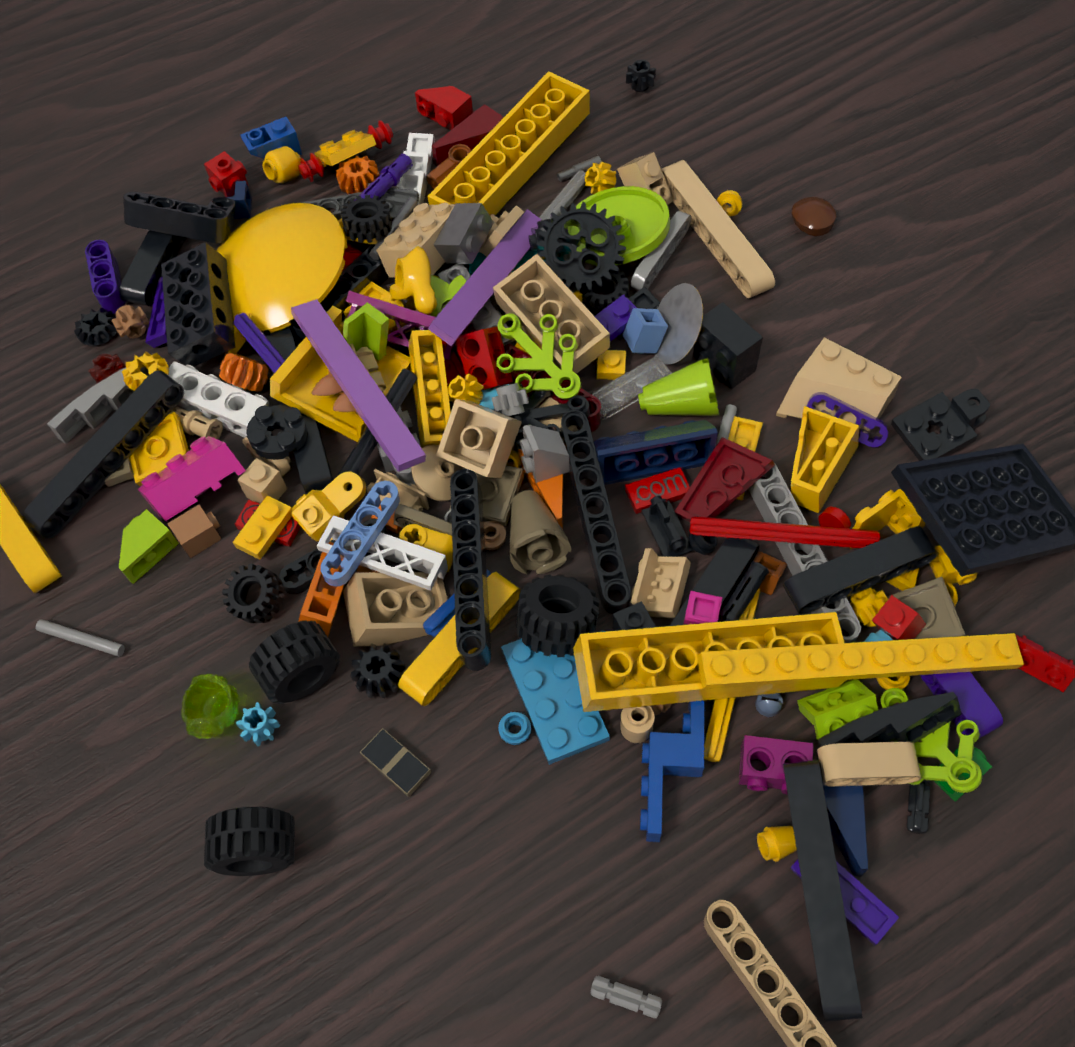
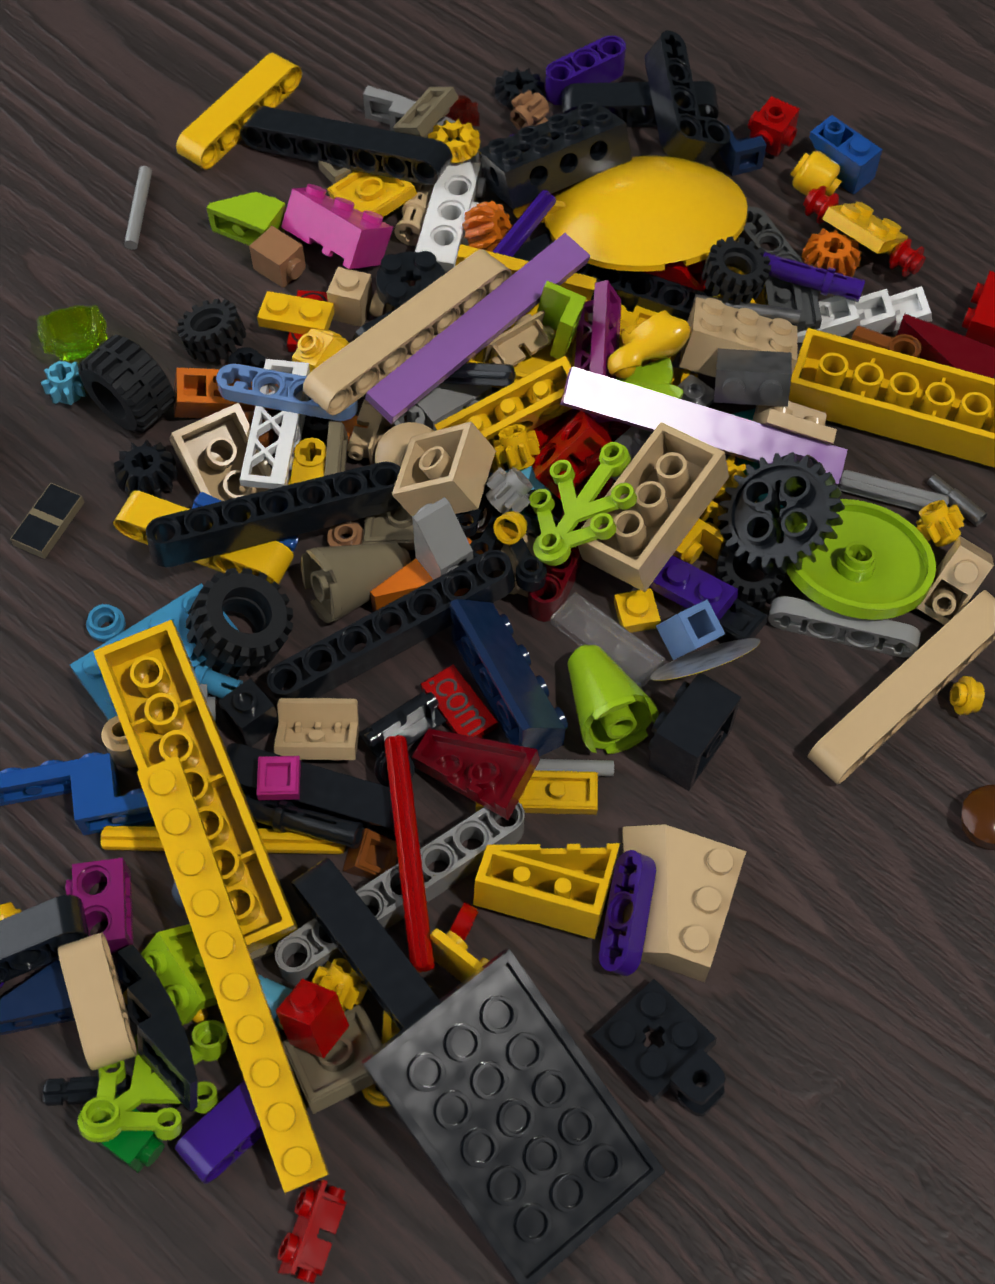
camera: 70 degrees right, 0 degrees up
(108, 381) = (427, 111): none -> dark tan plate
(347, 430) = (402, 333): none -> tan beam
(541, 410) = (508, 532): none -> yellow hinge

